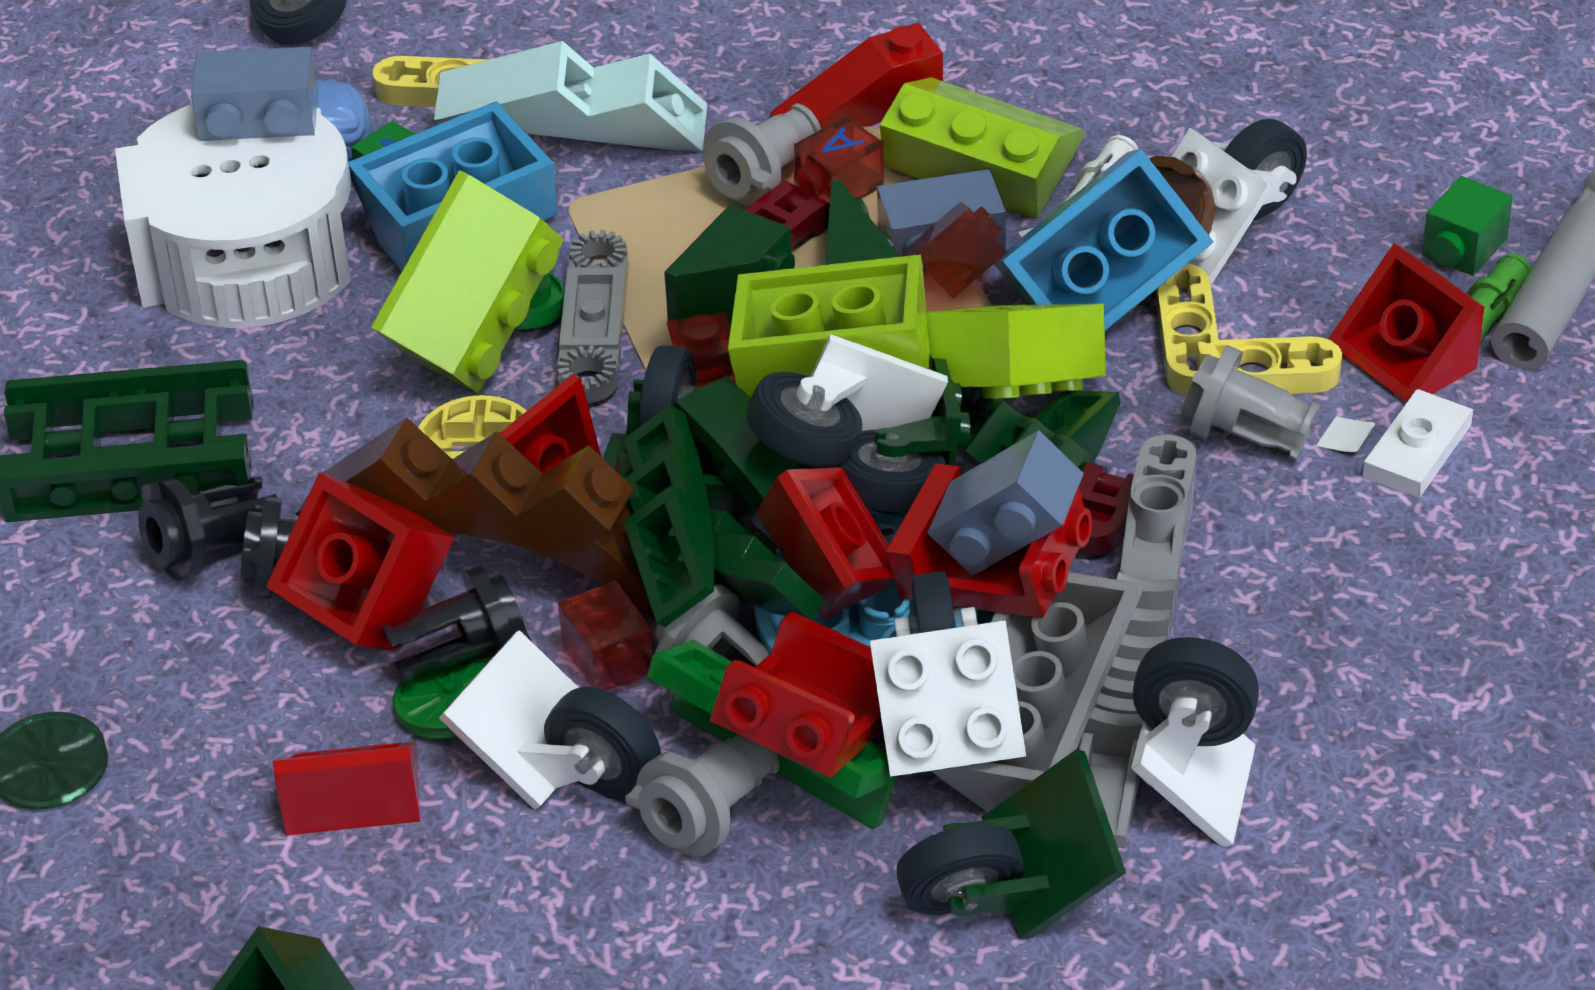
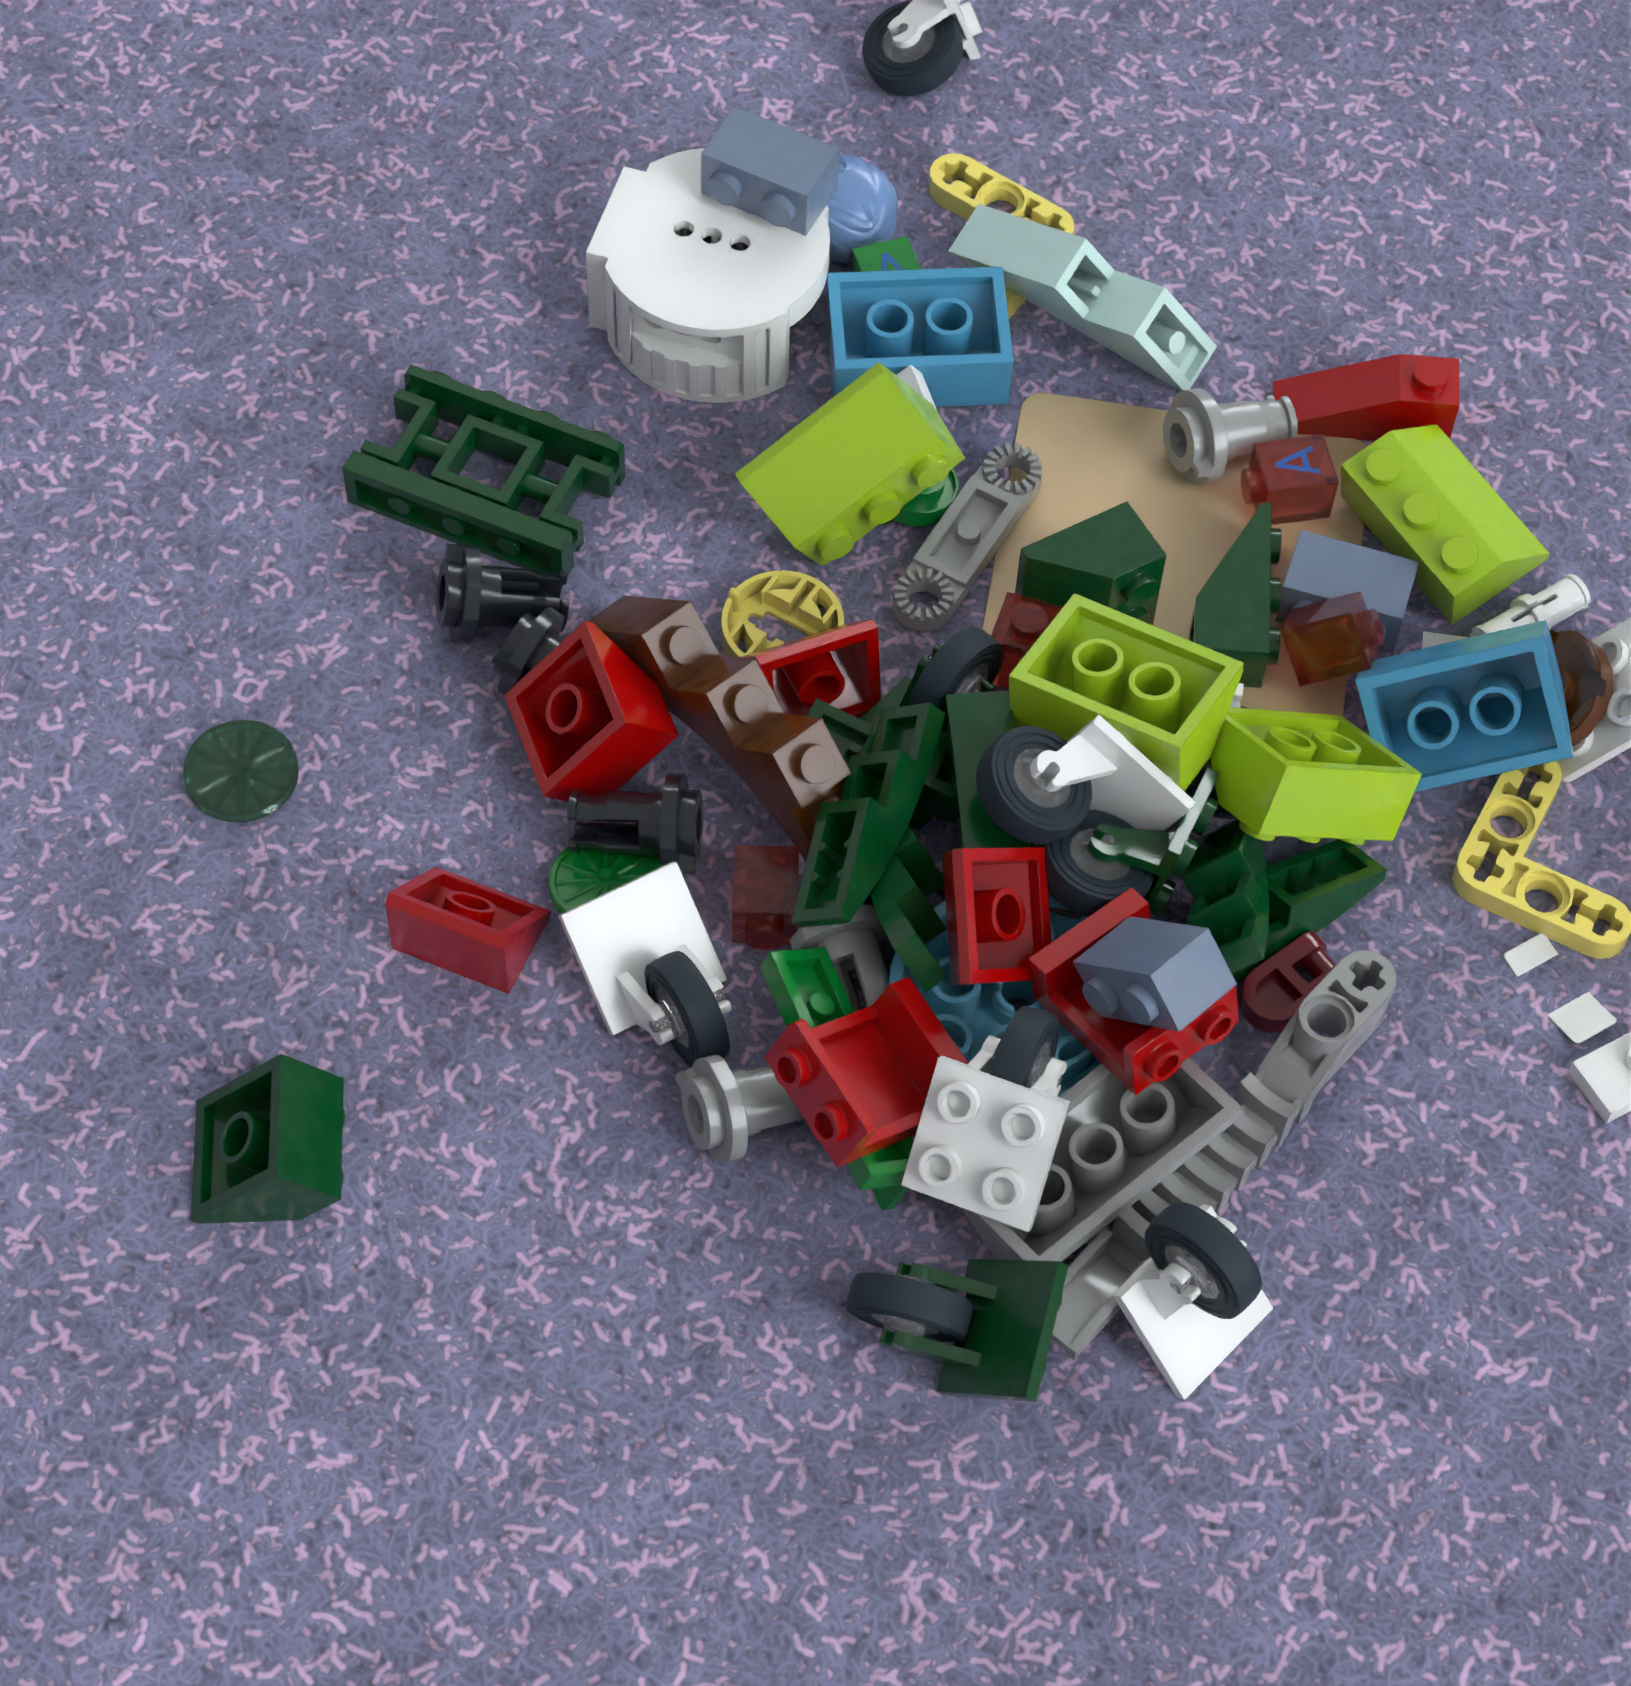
camera: 25 degrees right, 15 degrees up
(791, 208) = (1181, 516): dark red plate -> none
(1246, 406) = (1494, 947): light grey piece -> none

